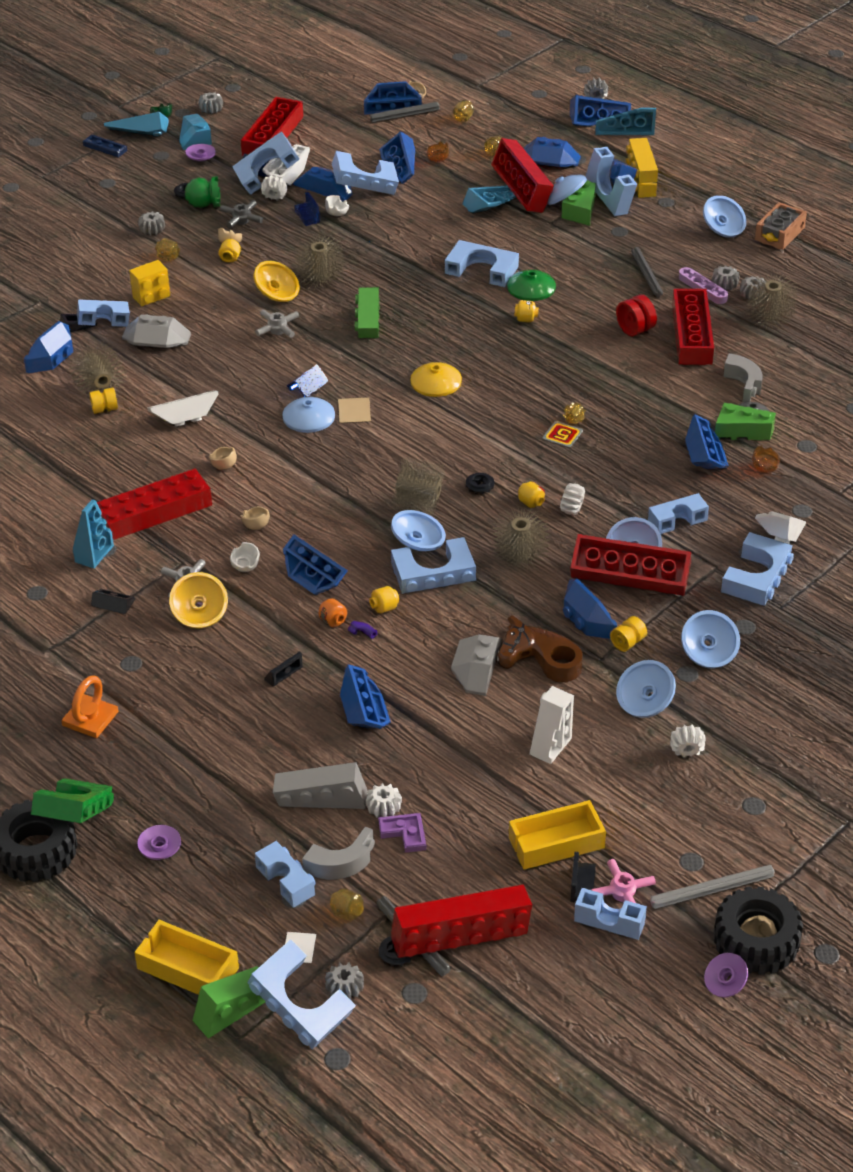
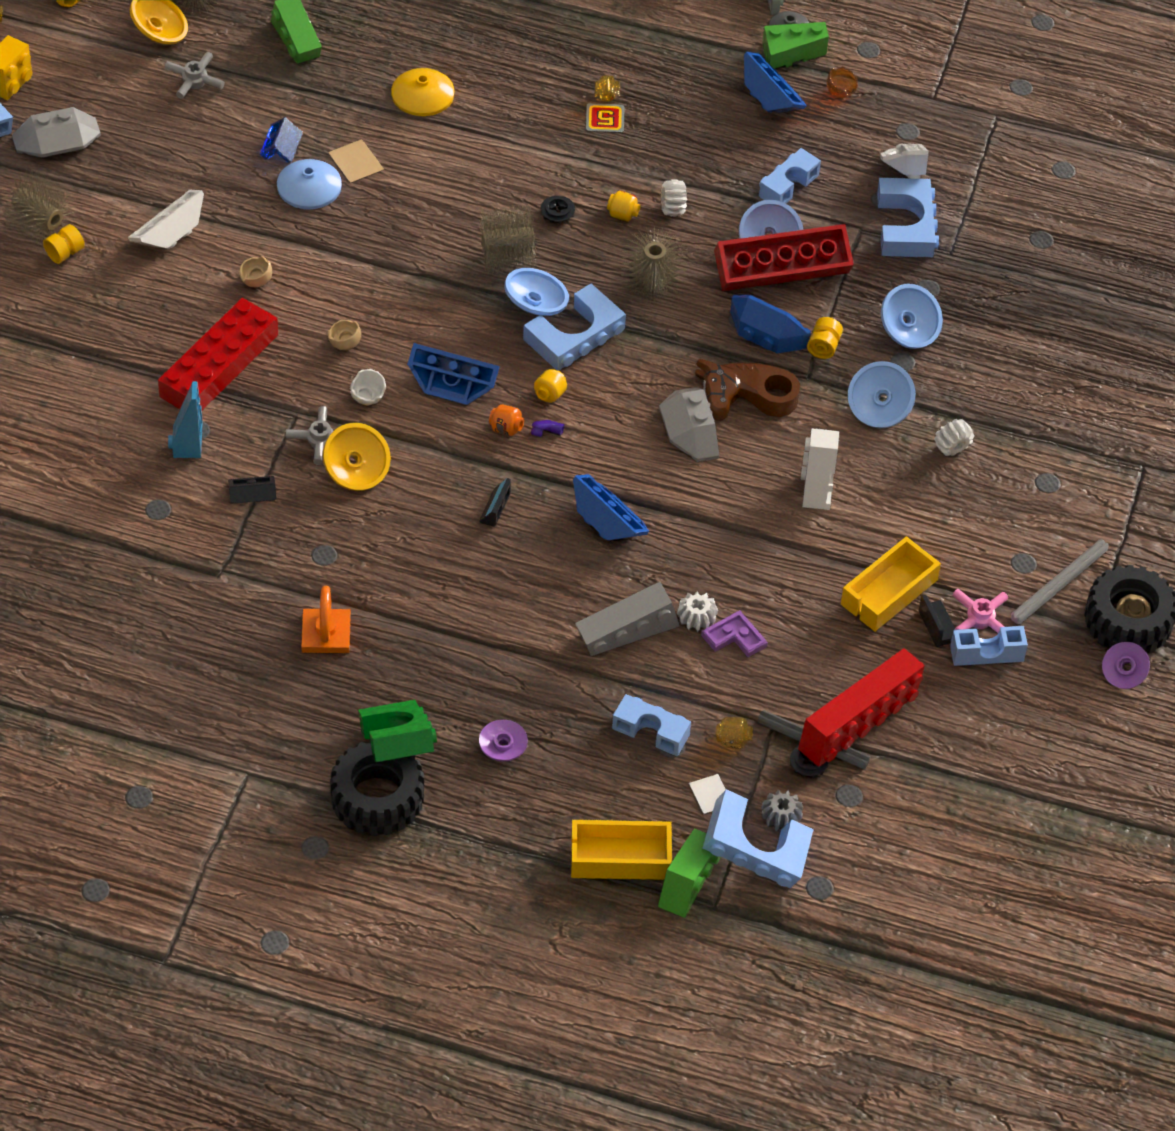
camera: 30 degrees left, 10 degrees up
(340, 863) = (695, 695): light grey arch -> none

